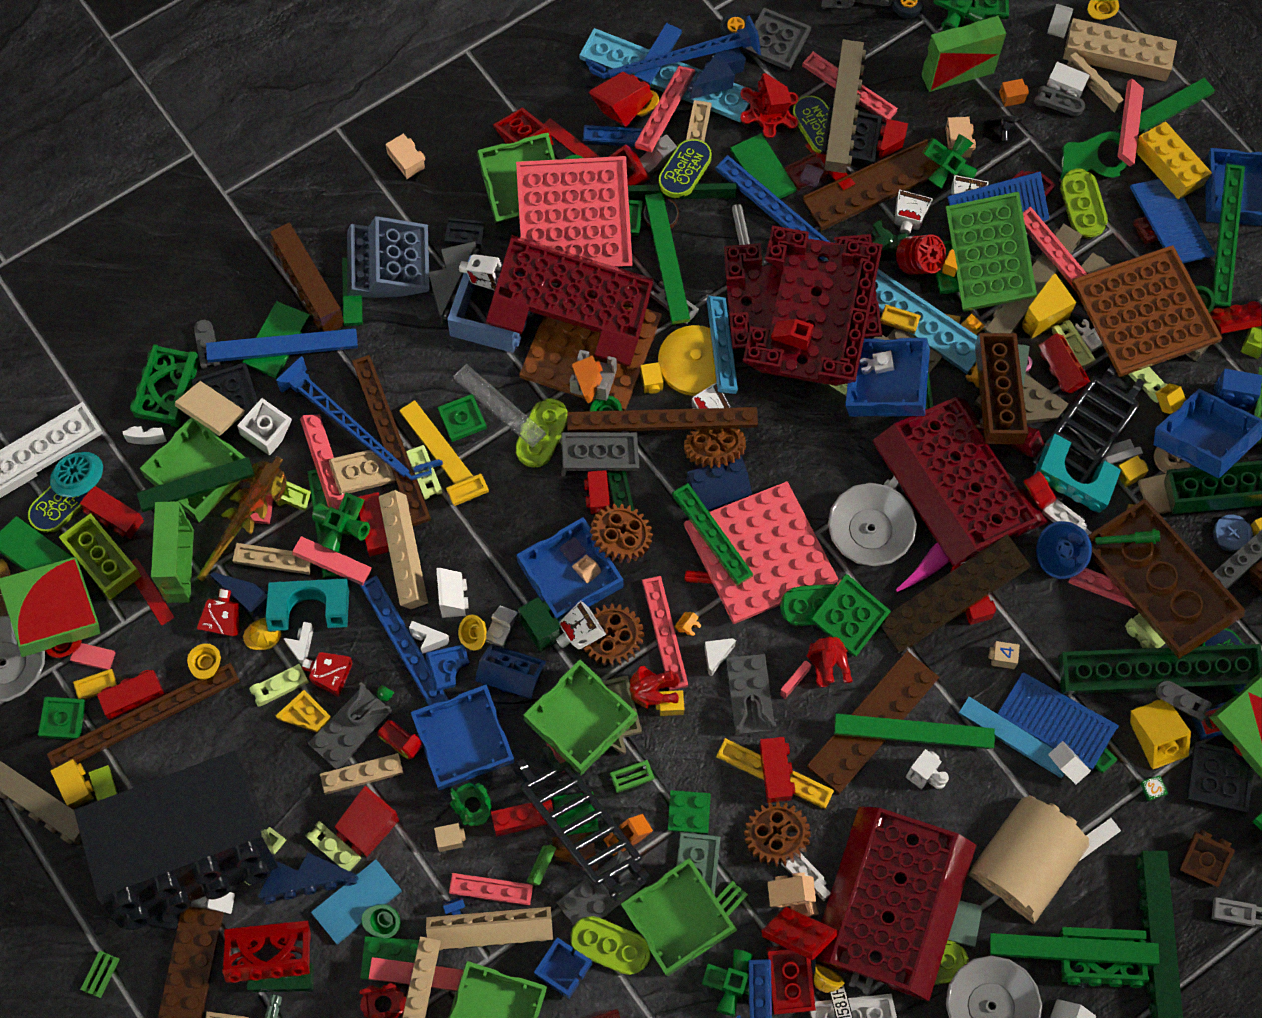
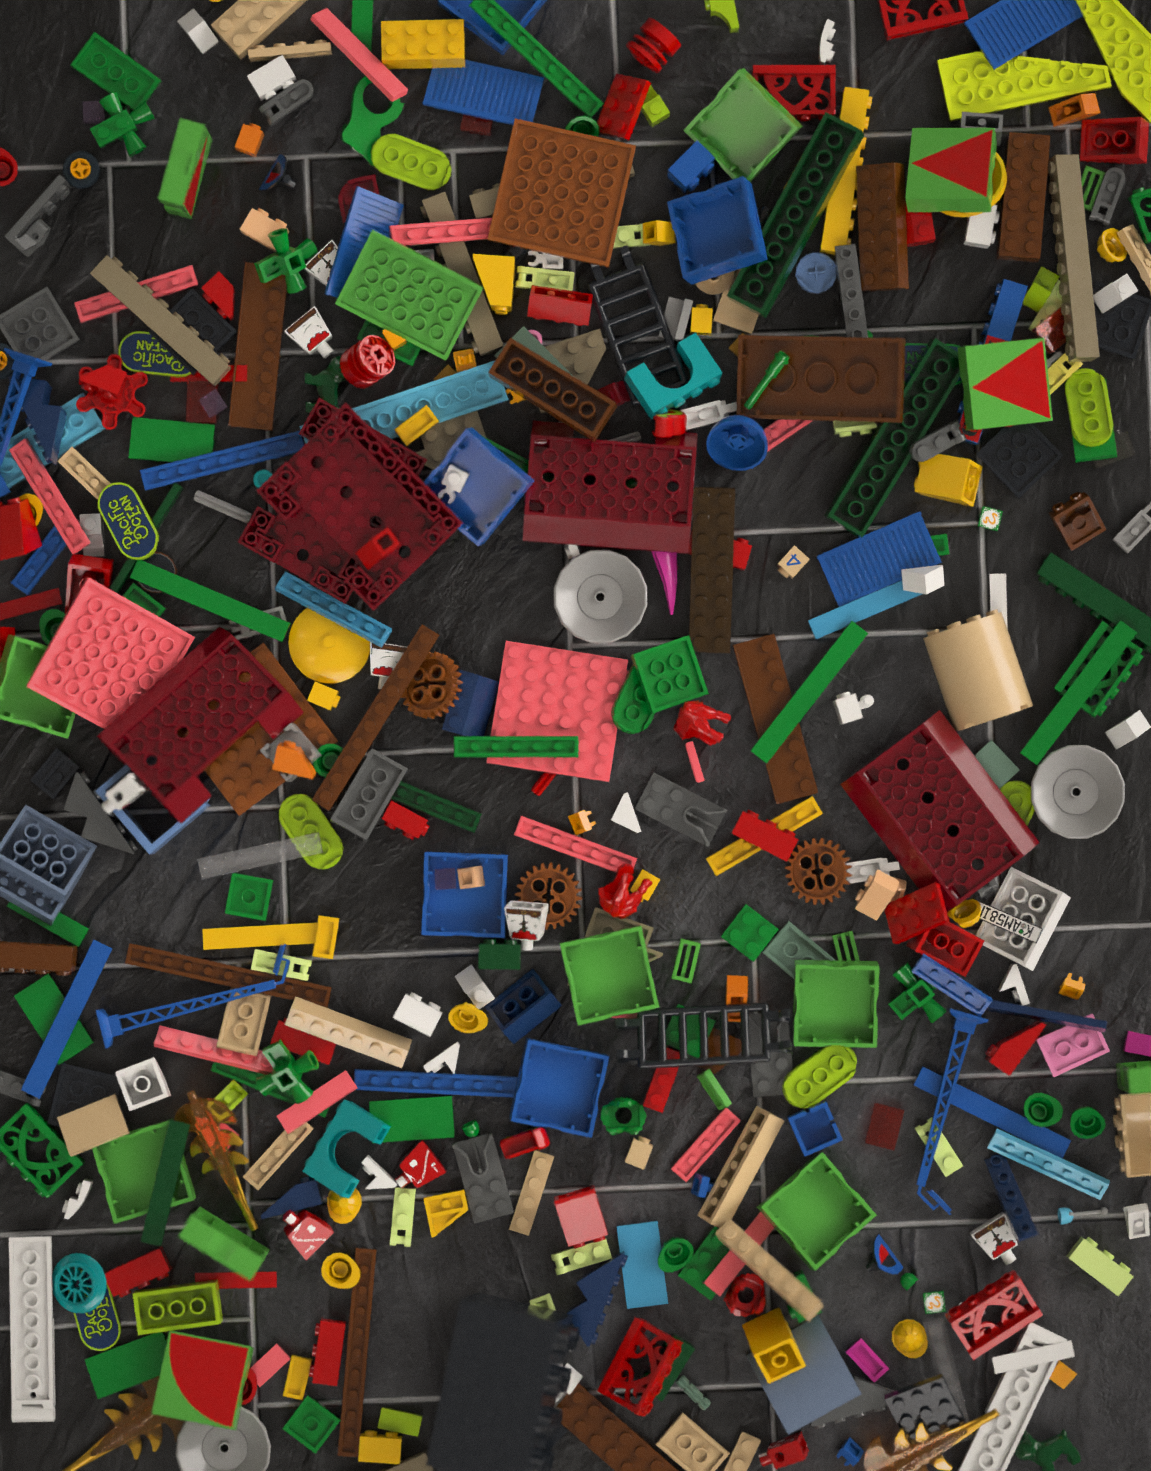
camera: 55 degrees left, 20 degrees up
(366, 645) = (416, 1118): none -> green tile
(445, 665) = (480, 1060): blue tile -> none
(621, 533) = (474, 840): dark orange gear -> none

